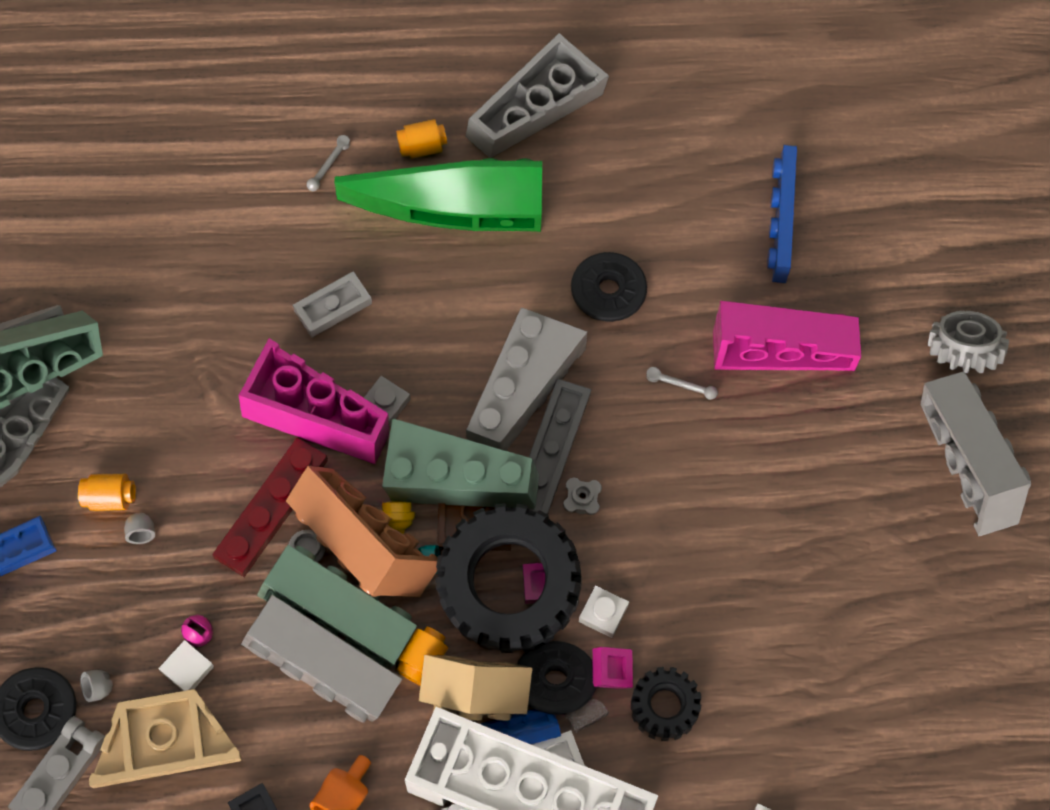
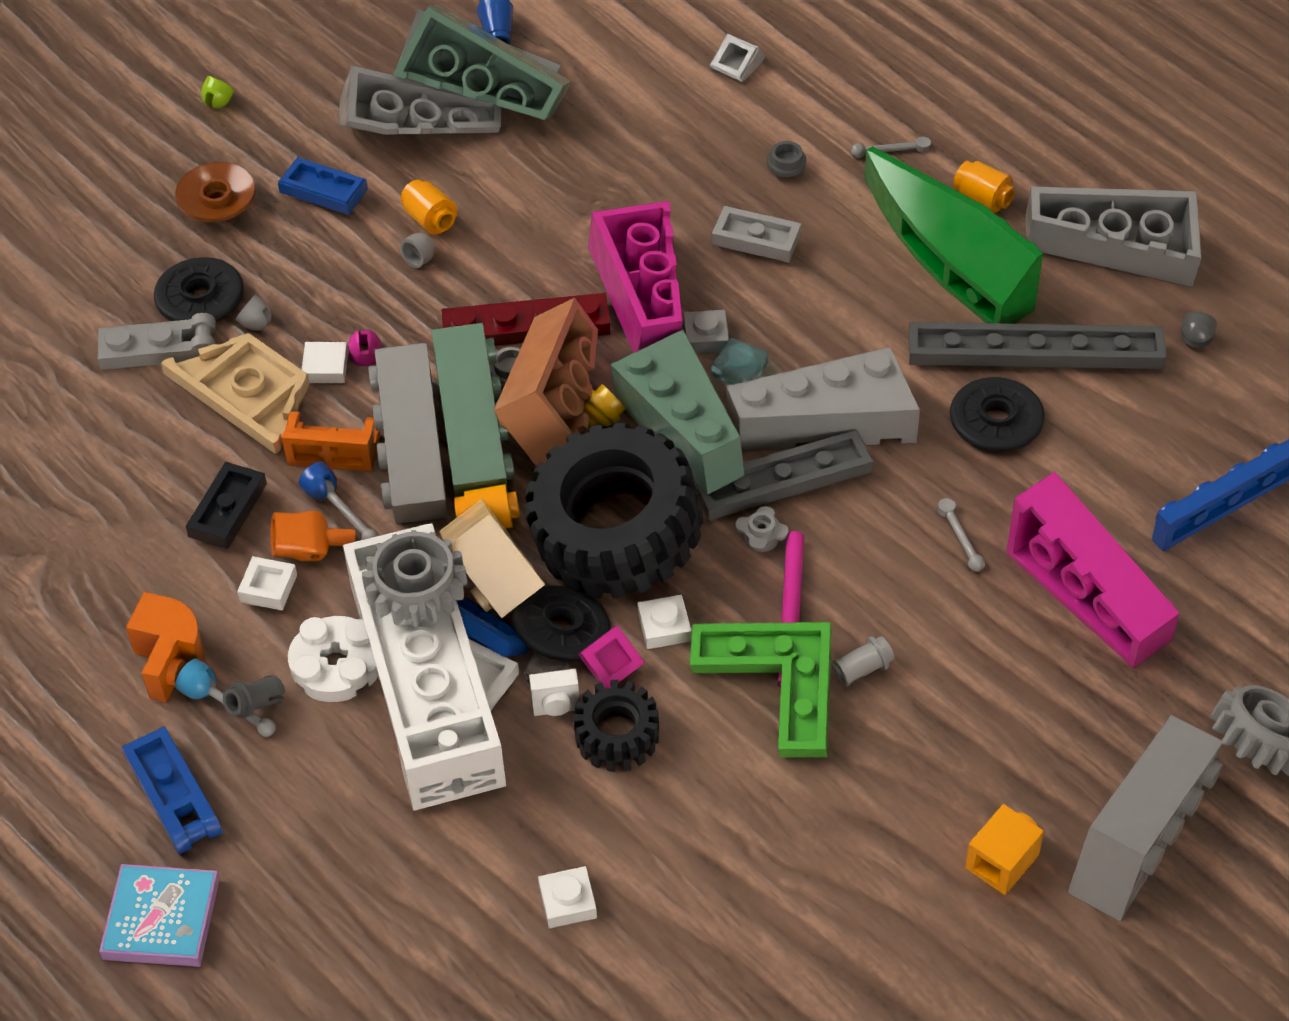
camera: 55 degrees right, 15 degrees down
(155, 190) = (737, 58): none -> light grey slope
(269, 715) = (332, 445): none -> orange hinge
(282, 234) = (786, 159): none -> dark grey plate
(302, 749) = (320, 483): none -> hinge
(432, 402) = (739, 362): none -> clear light blue plate
(482, 733) = (414, 577): none -> light grey gear
(576, 221) = (1036, 345): none -> dark grey plate
(613, 724) = (554, 692): none -> white plate
(646, 123) = (1198, 329): none -> dark grey hinge
(657, 528) = (792, 580): none -> dark pink bar
(712, 552) = (795, 650): none -> bright green plate
(735, 515) = (863, 660): none -> light grey pin
(934, 548) = (1004, 848): none -> light orange brick

